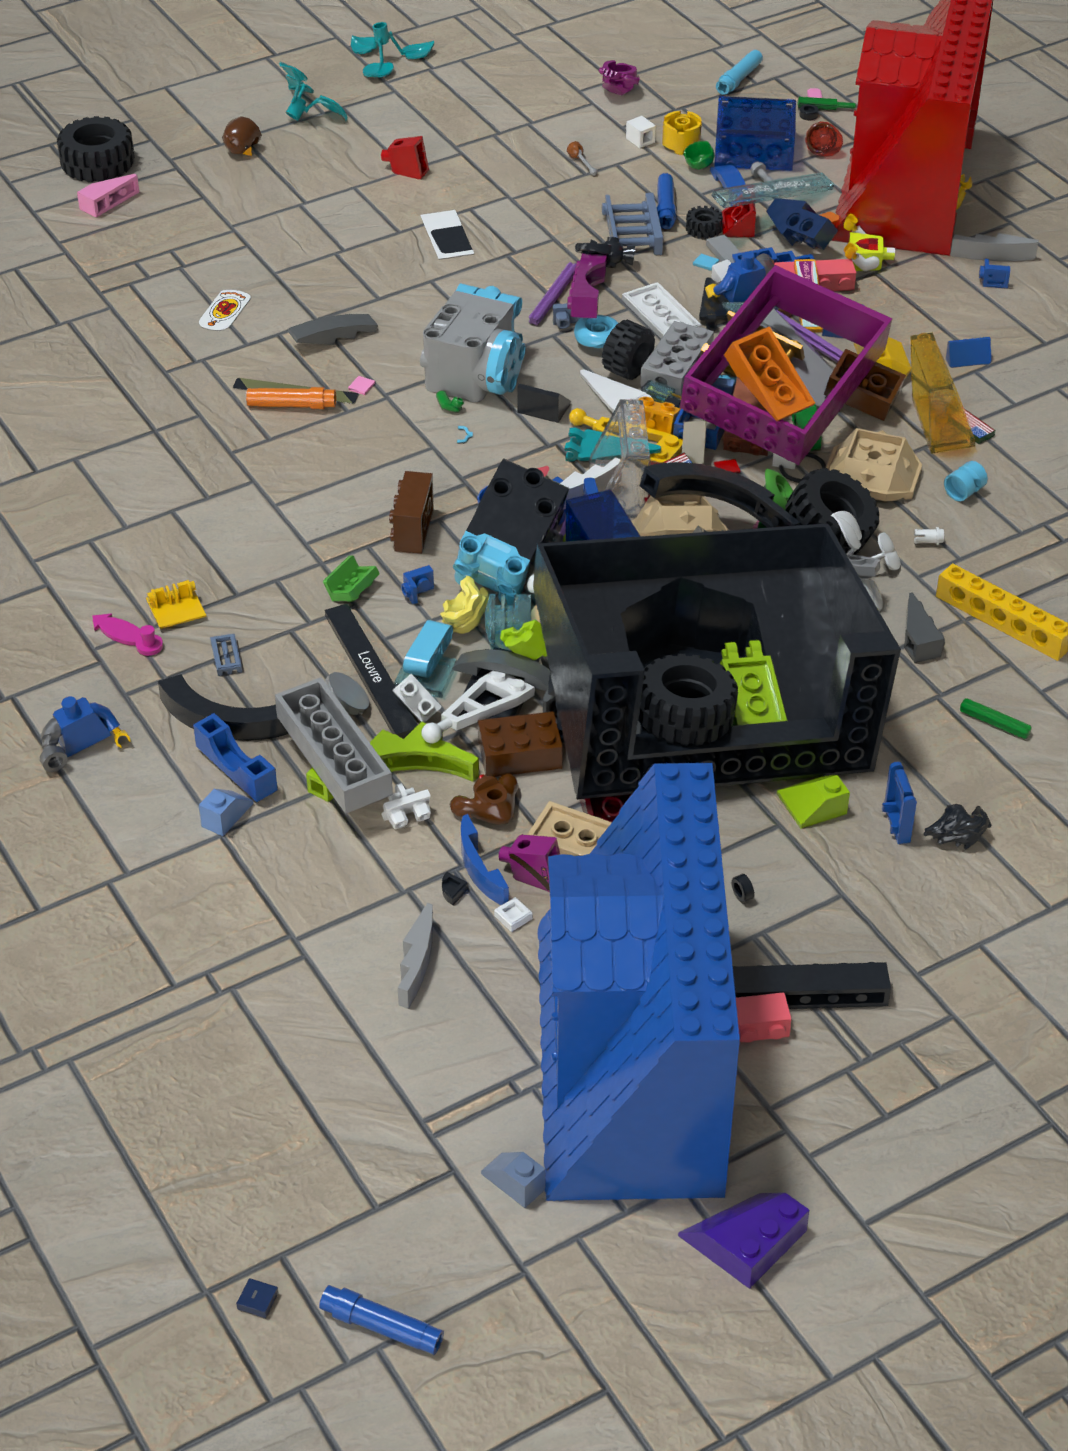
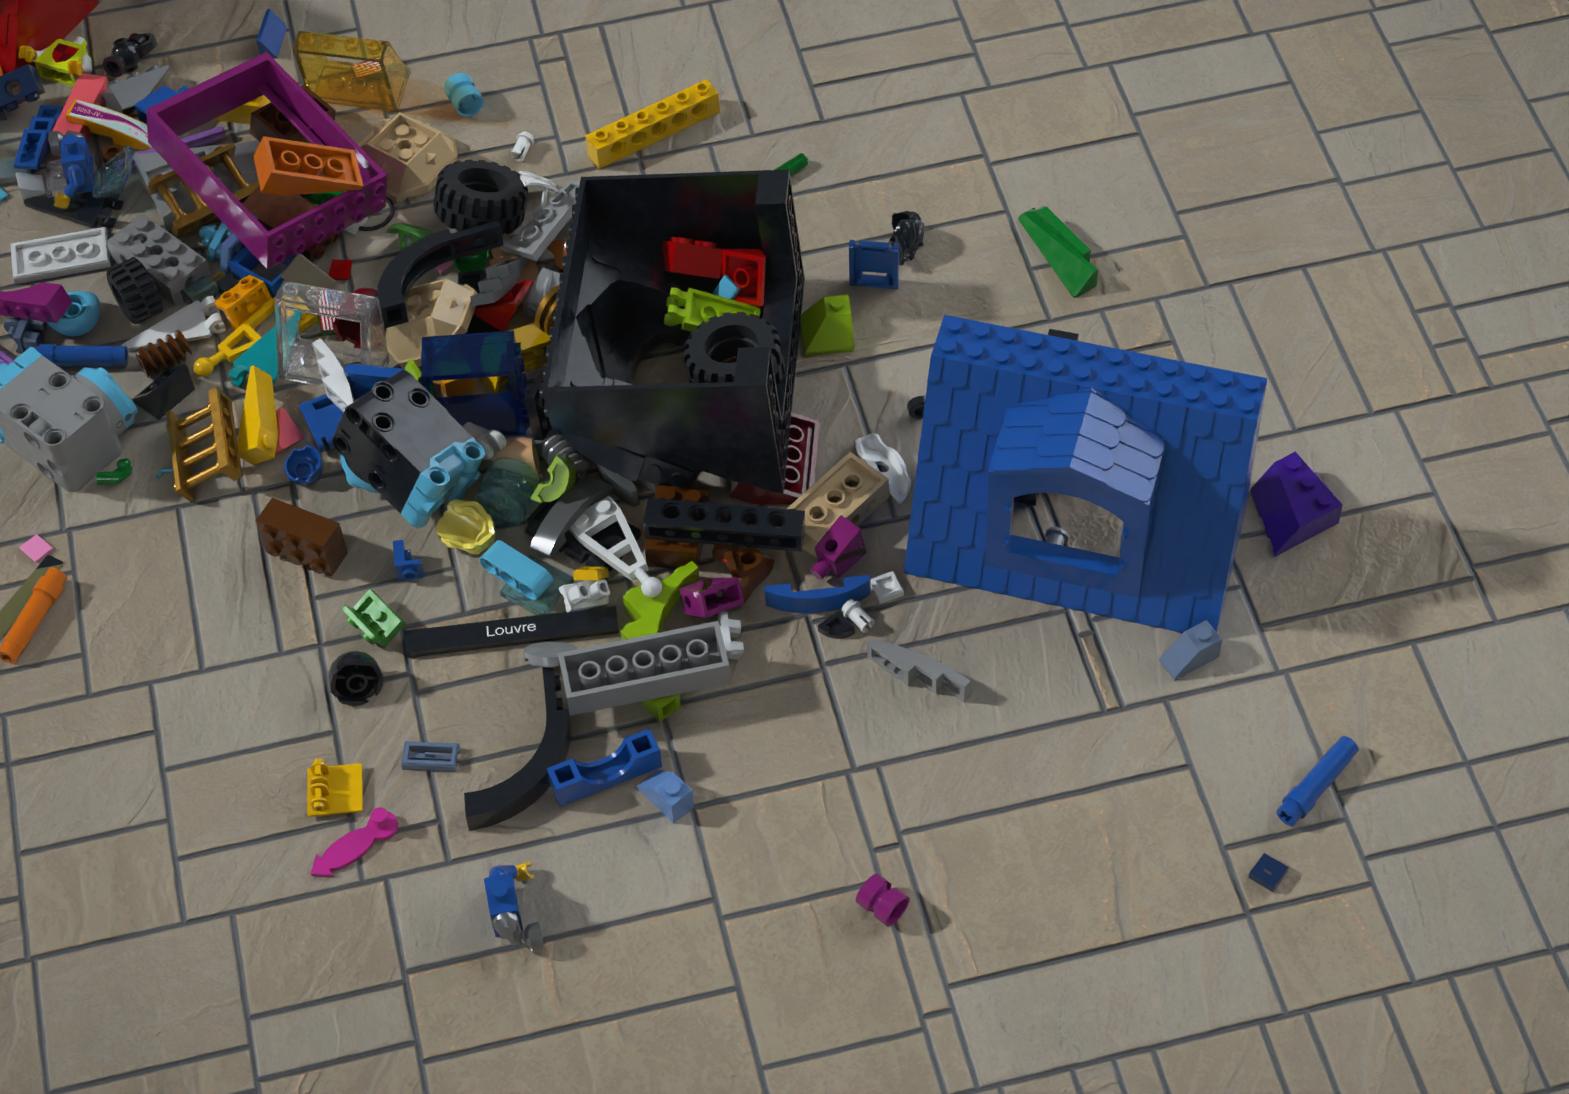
camera: 70 degrees left, 10 degrees up
(143, 982) = (885, 902): none -> magenta wheel
(284, 582) = (355, 678): none -> black cylinder
(439, 778) = (702, 600): none -> magenta torso
(443, 697) = (591, 573): none -> yellow tile
(472, 892) = (857, 615): none -> white pin
(489, 433) = (224, 446): none -> pearl gold fence
(513, 759) = (724, 524): none -> black brick
(538, 452) = (258, 424): none -> yellow slope
(551, 337) = (84, 355): none -> blue piece
(577, 388) = (163, 353): none -> reddish brown piece
(793, 691) = (726, 288): none -> medium azure piece
(810, 651) = (698, 259): none -> red slope
(810, 697) = (747, 271): none -> red slope
(859, 292) = (124, 94): none -> dark grey slope
(891, 279) = (128, 52): none -> black piece
(1014, 963) = (1061, 249): none -> green wedge

